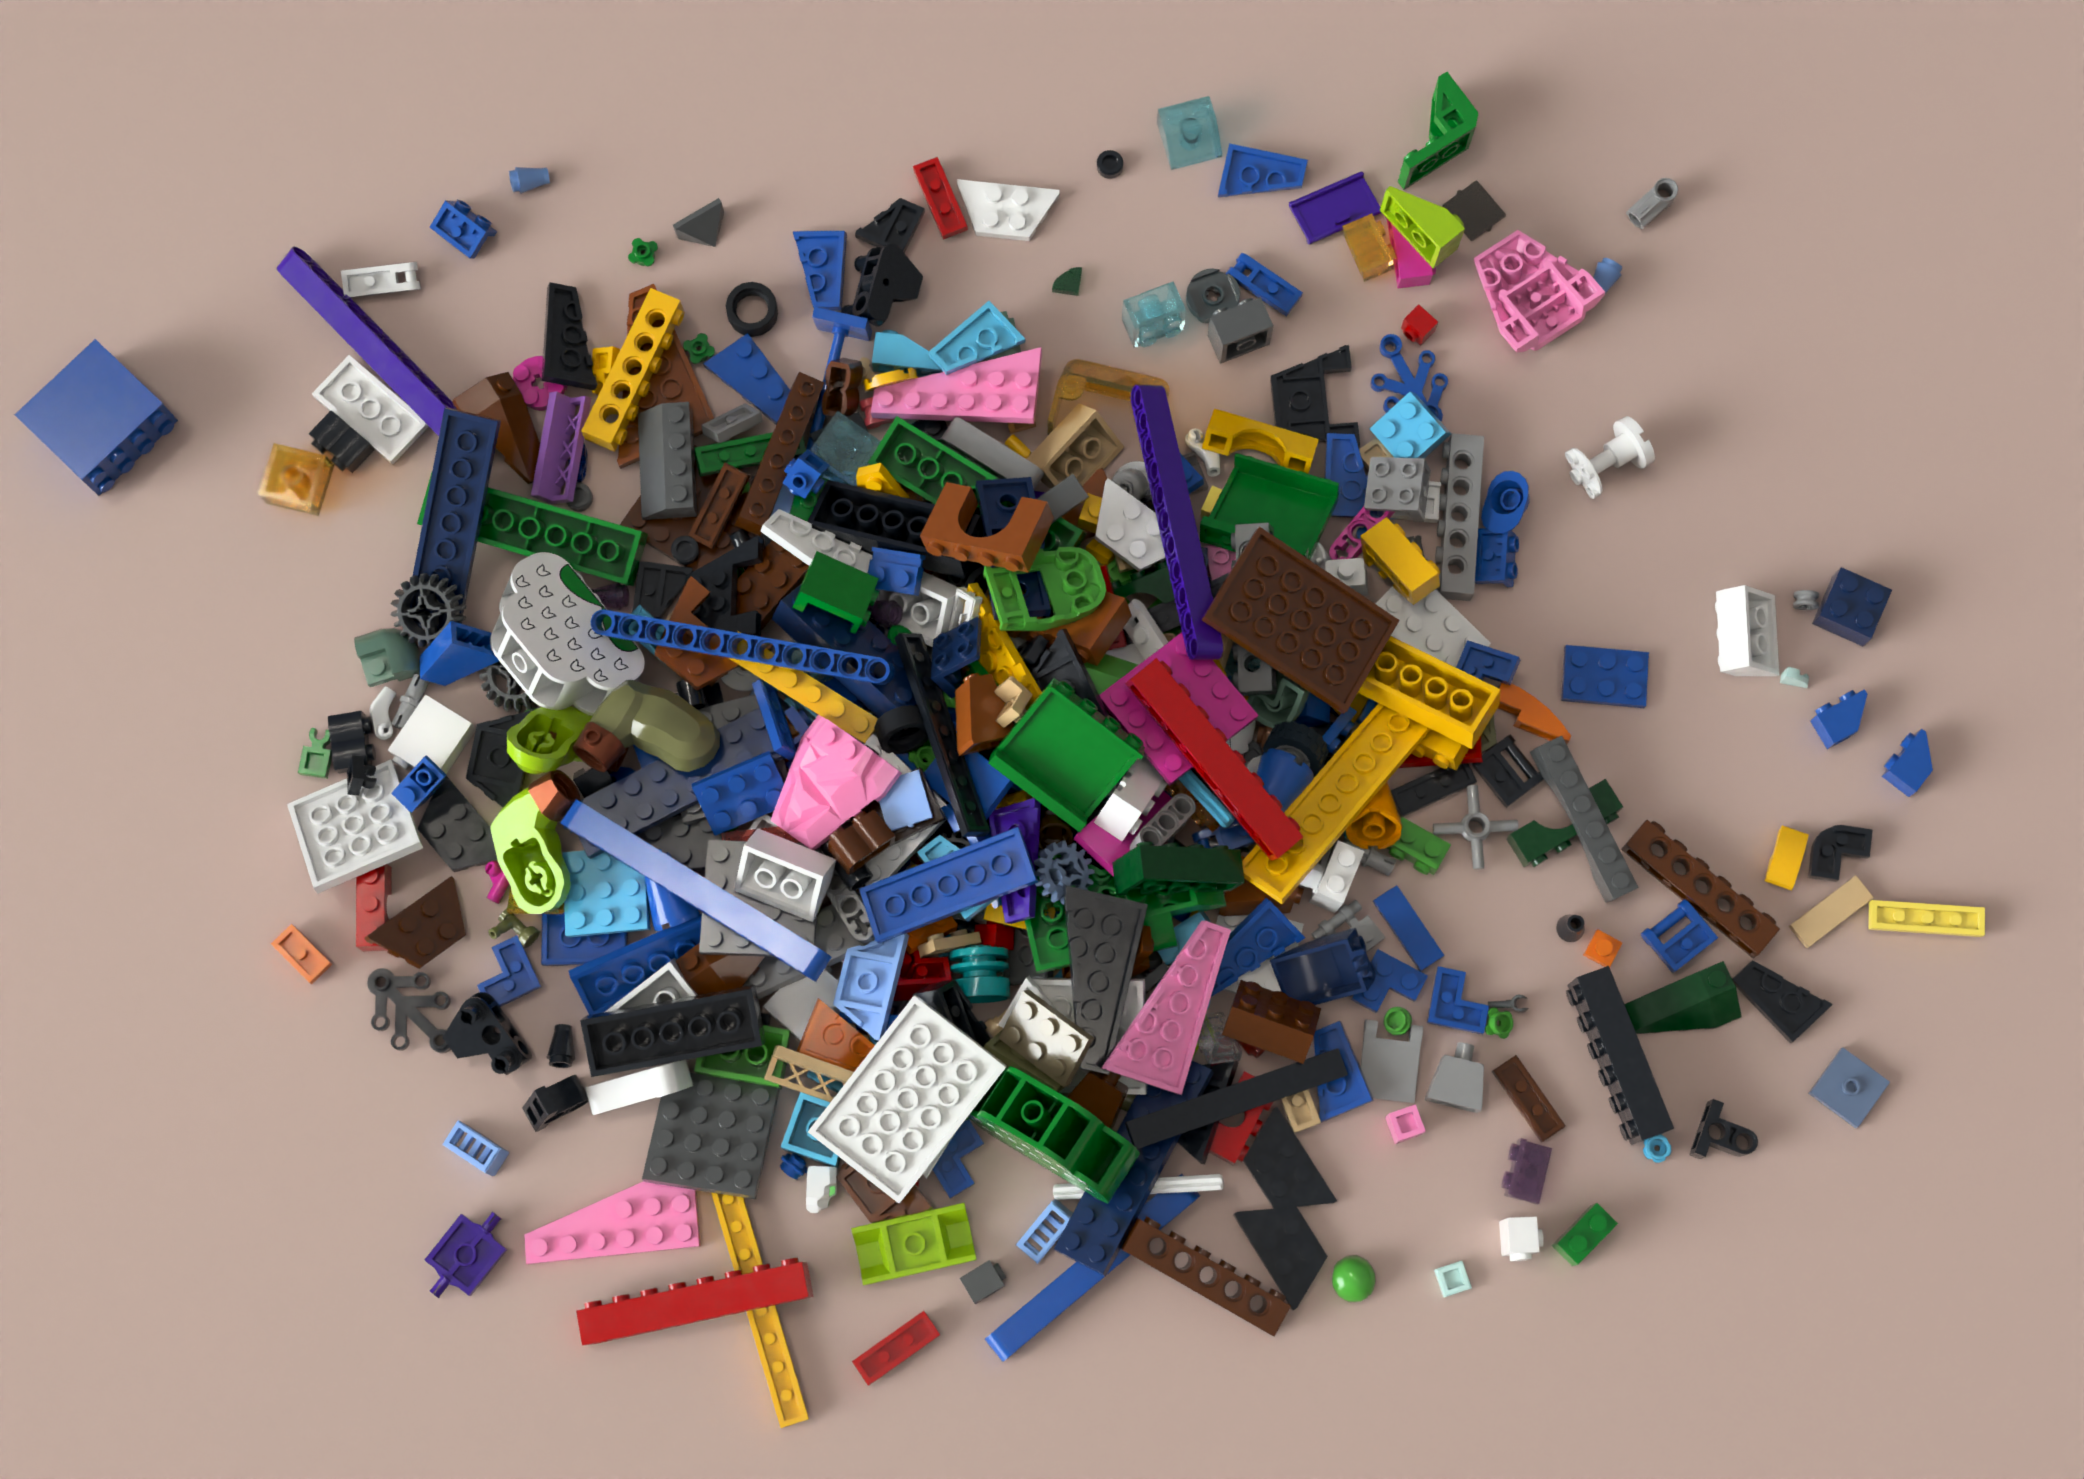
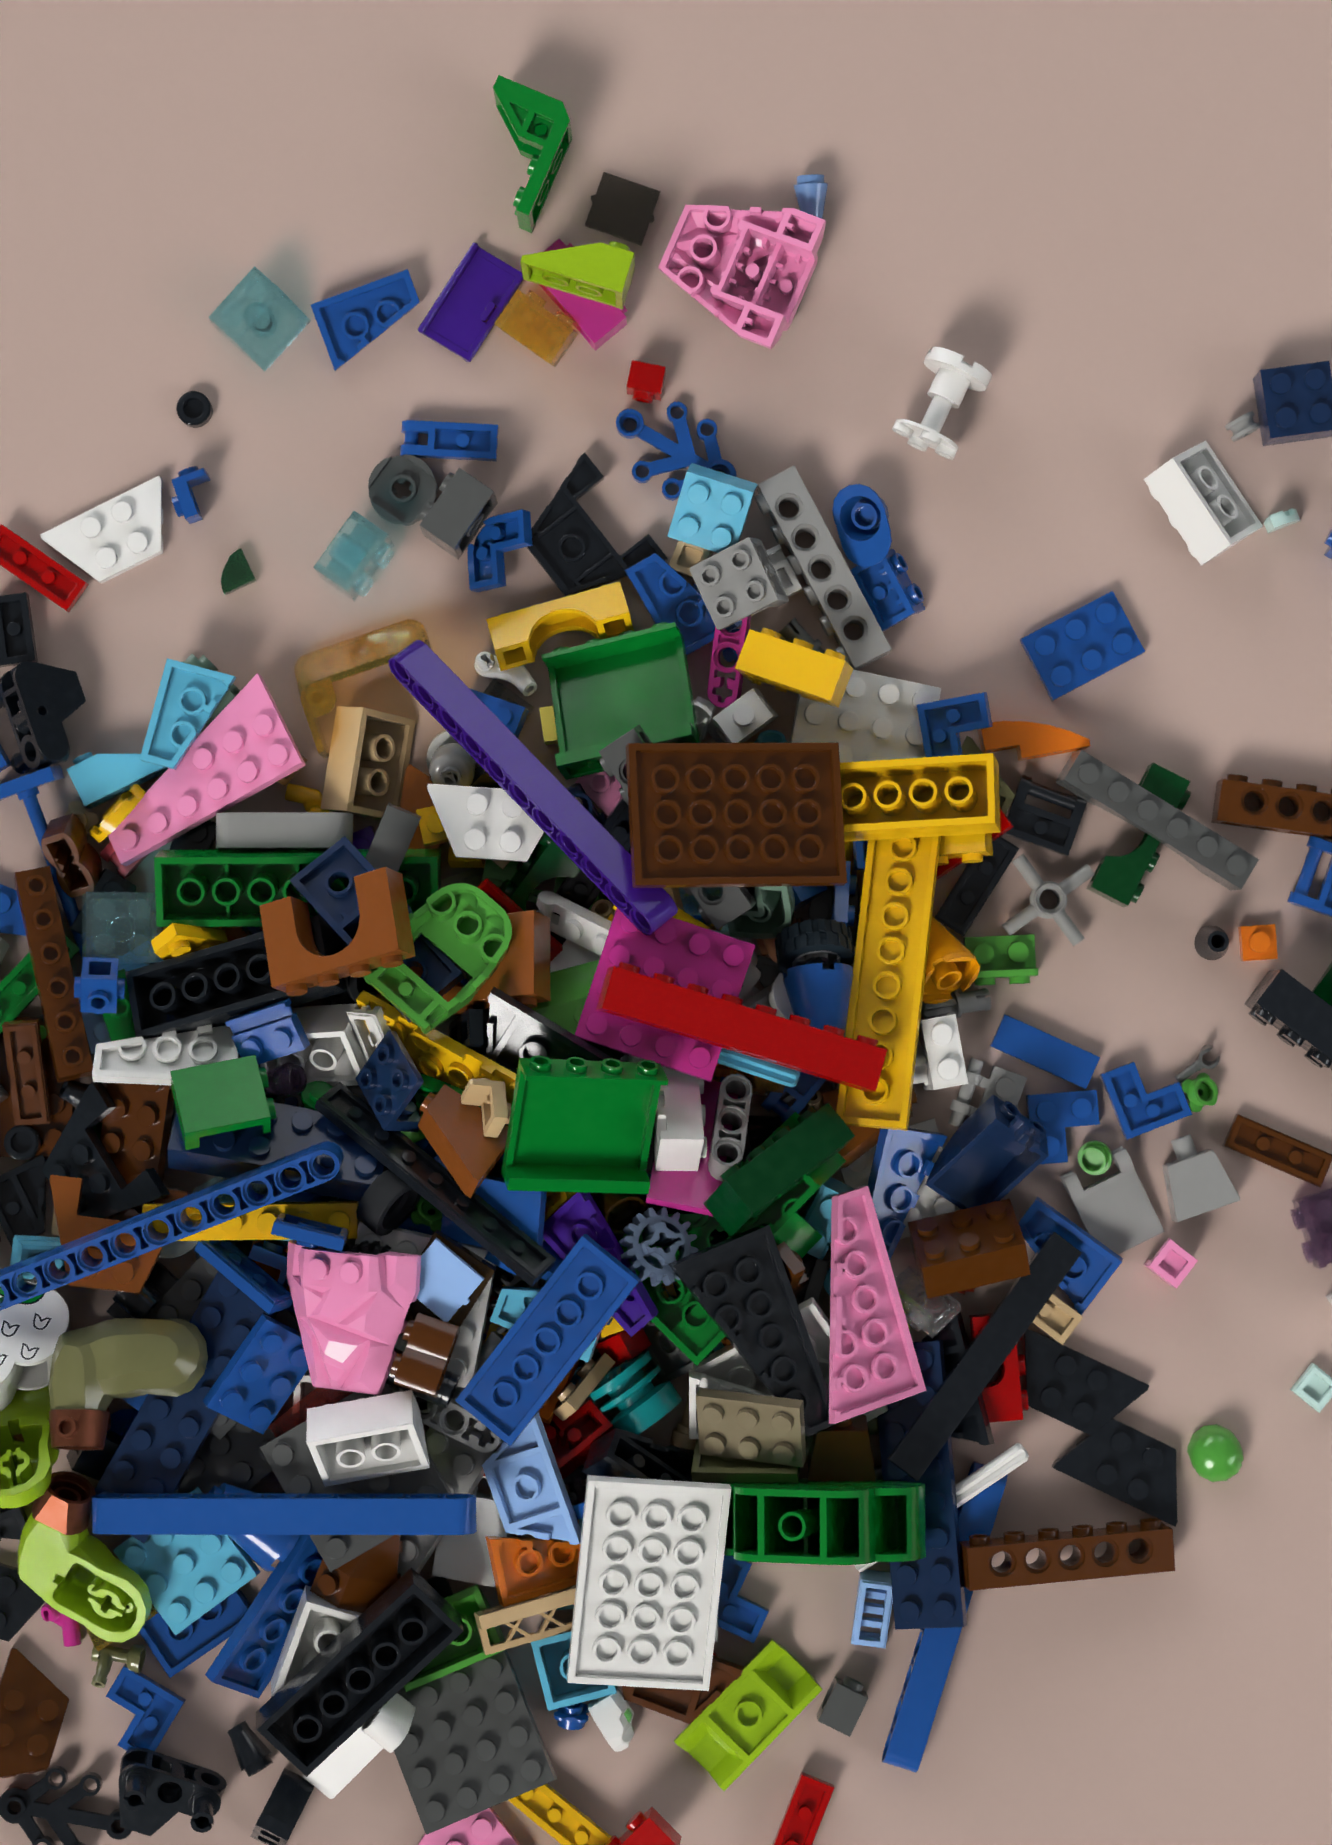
camera: 30 degrees left, 10 degrees up
(837, 712) = (310, 1232): none -> blue plate
(1072, 204) = (185, 501): none -> blue bracket
(1239, 372) = (486, 555): none -> blue plate
(1652, 203) = (811, 80): light grey piece -> none

